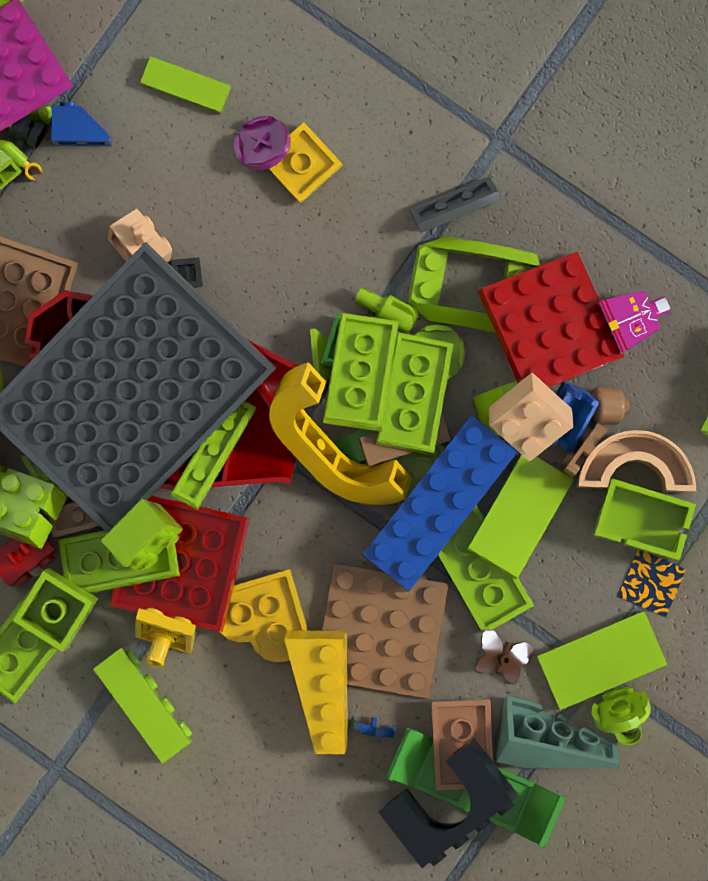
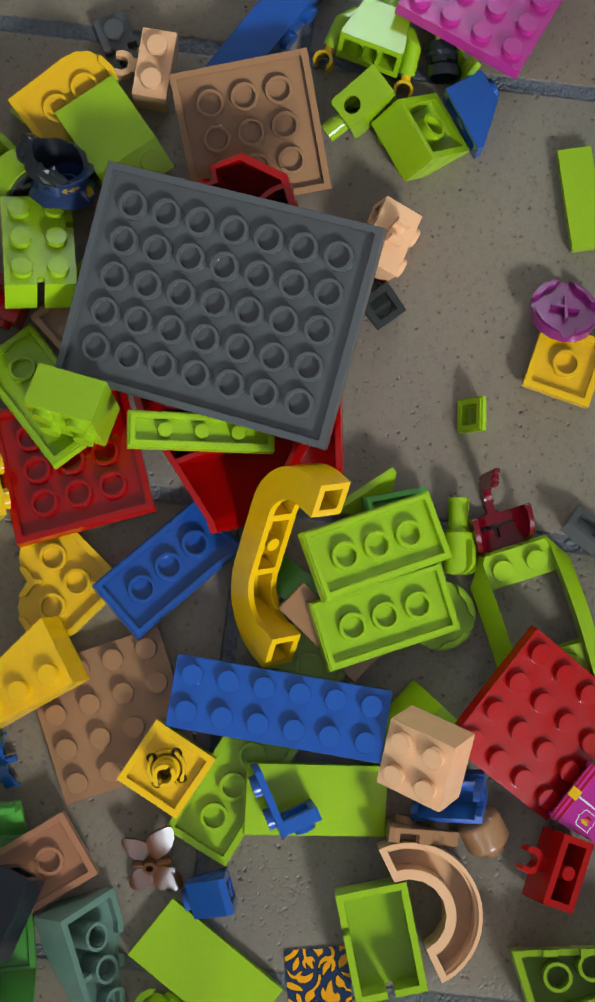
camera: 60 degrees right, 0 degrees up
(29, 196) = (367, 93): none -> lime torso
(74, 177) = (419, 136): none -> lime slope
(295, 534) = (165, 570): none -> blue tile
(302, 251) = (471, 414): none -> lime slope
(405, 265) = (522, 517): none -> dark red helmet
(441, 608) = (141, 772): none -> yellow plate
(526, 534) = (295, 820): none -> blue bracket
(547, 626) = (210, 894): none -> blue slope
(660, 368) = (556, 869): none -> red brick

